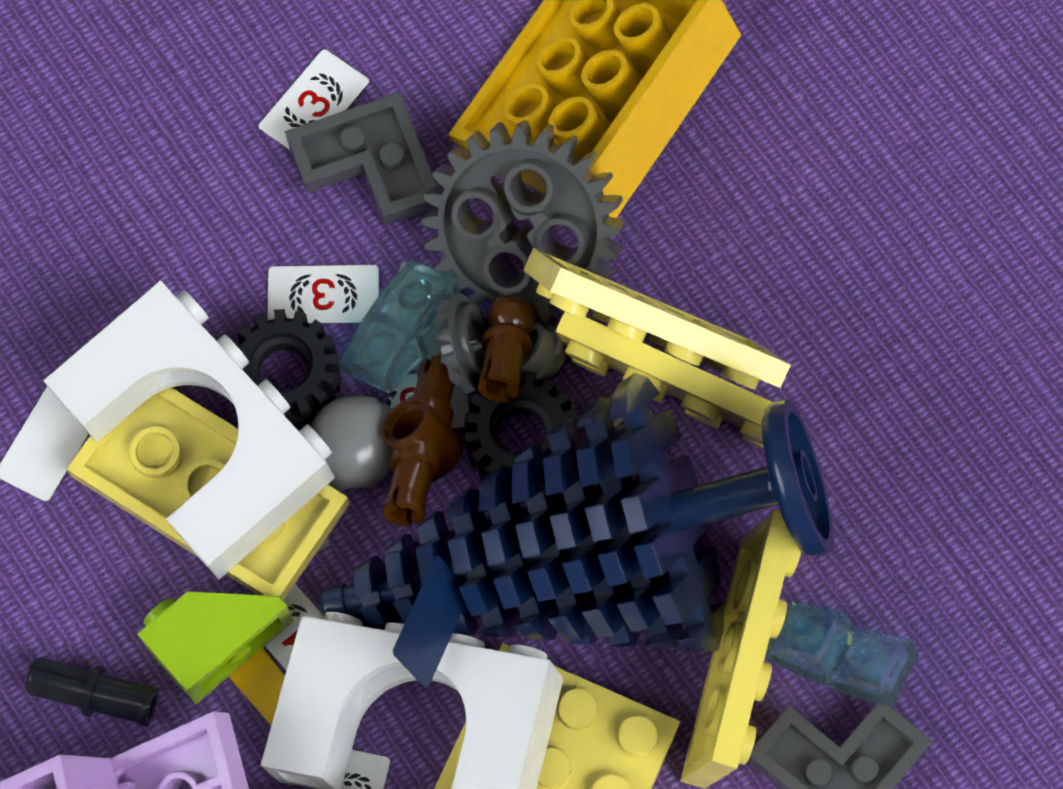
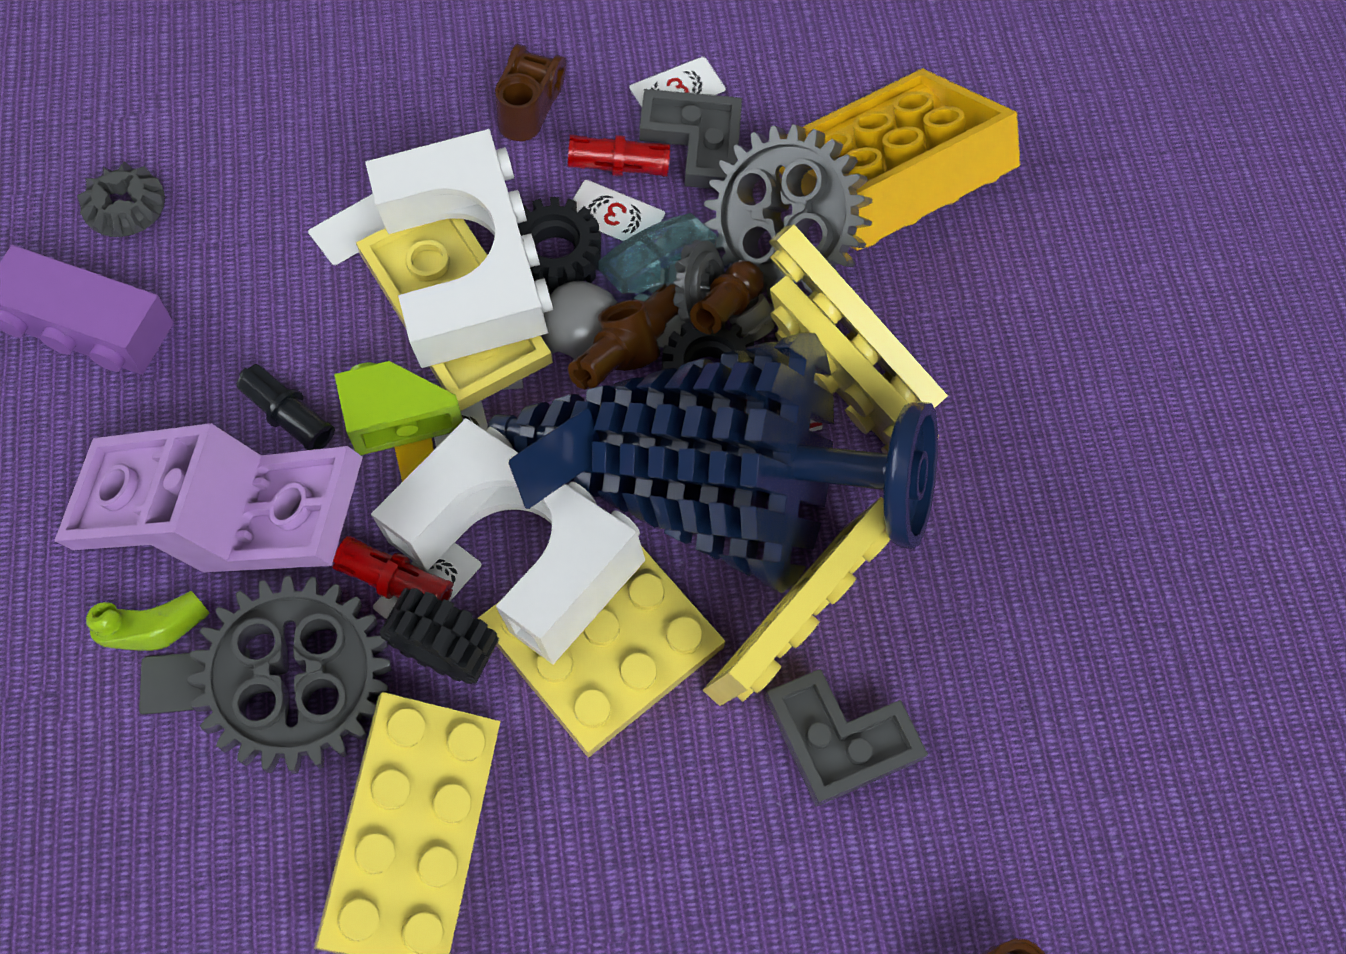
camera: 20 degrees right, 5 degrees down
(152, 184) = (527, 92): none -> reddish brown piece
(295, 225) = (618, 155): none -> red pin
(836, 654) = (880, 649): clear light blue slope -> none

